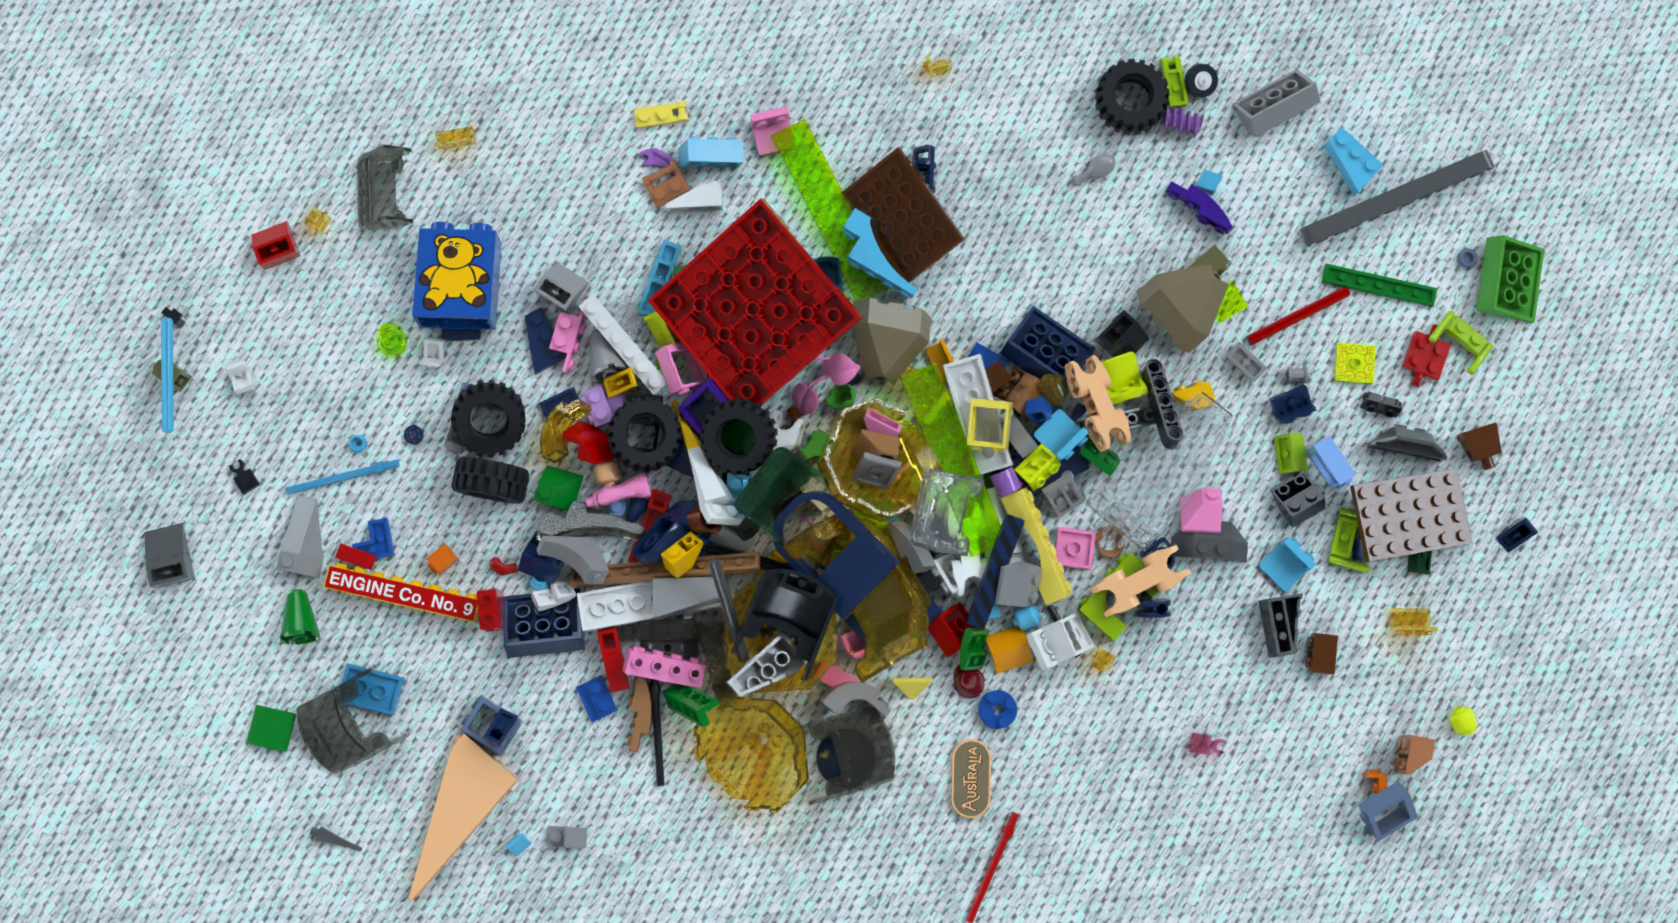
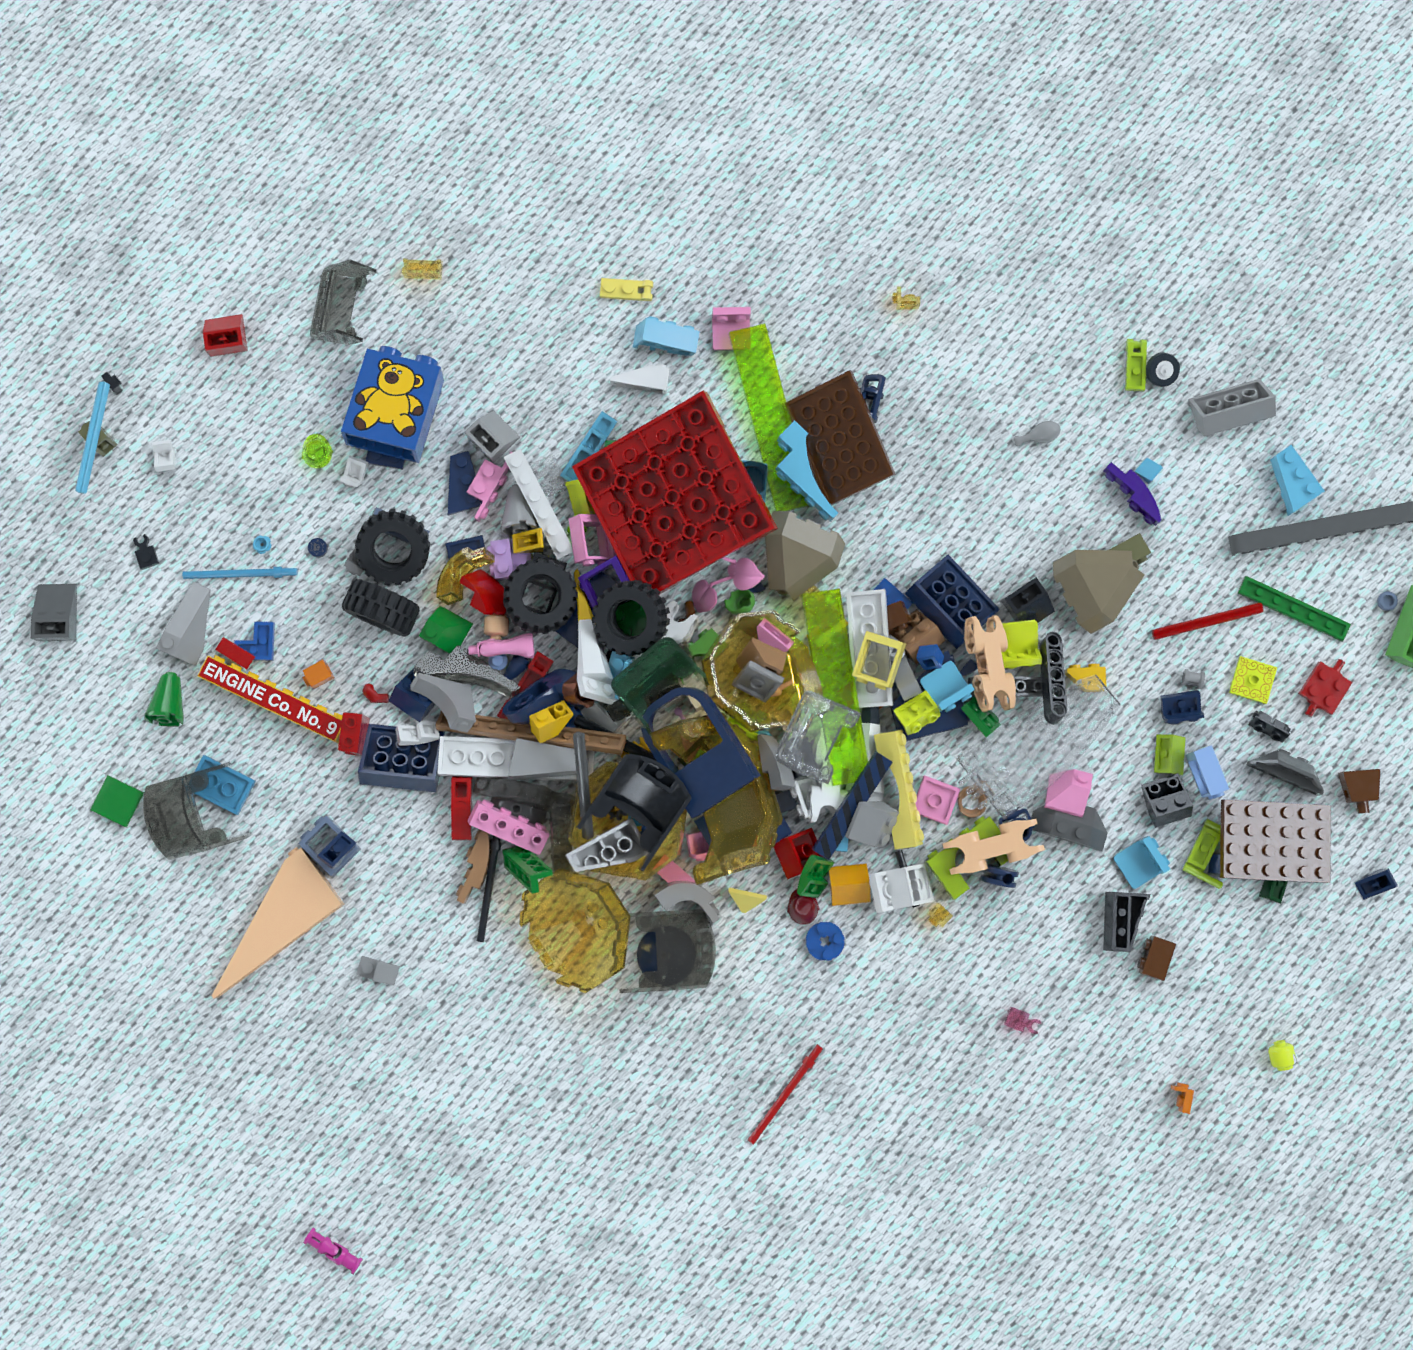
camera: 15 degrees right, 0 degrees up
(319, 226) = (273, 325): clear yellow plate -> none
(327, 836) = (146, 917): dark grey piece -> none
(518, 844) = (330, 967): medium azure slope -> none
(538, 584) = (405, 719): medium azure plate -> none
(596, 698) = (437, 842): blue plate -> none
(657, 158) = (616, 332): medium lavender piece -> none
(669, 189) = (618, 363): nougat plate -> none
(939, 354) = (846, 582): light orange panel -> none
(971, 778) = (784, 1003): dark tan tile -> none
(1006, 482) = (882, 720): medium lavender piece -> none
(1026, 617) = (873, 857): medium azure head -> none
(1052, 388) = (948, 639): clear yellow brick -> none
(1058, 497) = (931, 748): light grey plate -> none
(1137, 73) = (1103, 350): black tyre -> none
(1182, 121) = (1134, 405): medium lavender piece -> none
(1232, 303) = (1144, 594): clear neon green piece -> none
(1246, 361) = (1145, 655): light grey hinge -> none
(1381, 802) = (1182, 1117): sand blue window -> none
(1411, 620) = (1249, 944): clear yellow bracket -> none
(1413, 753) = (1225, 1076): nougat slope -> none
(1466, 336) = (1368, 677): lime plate -> none

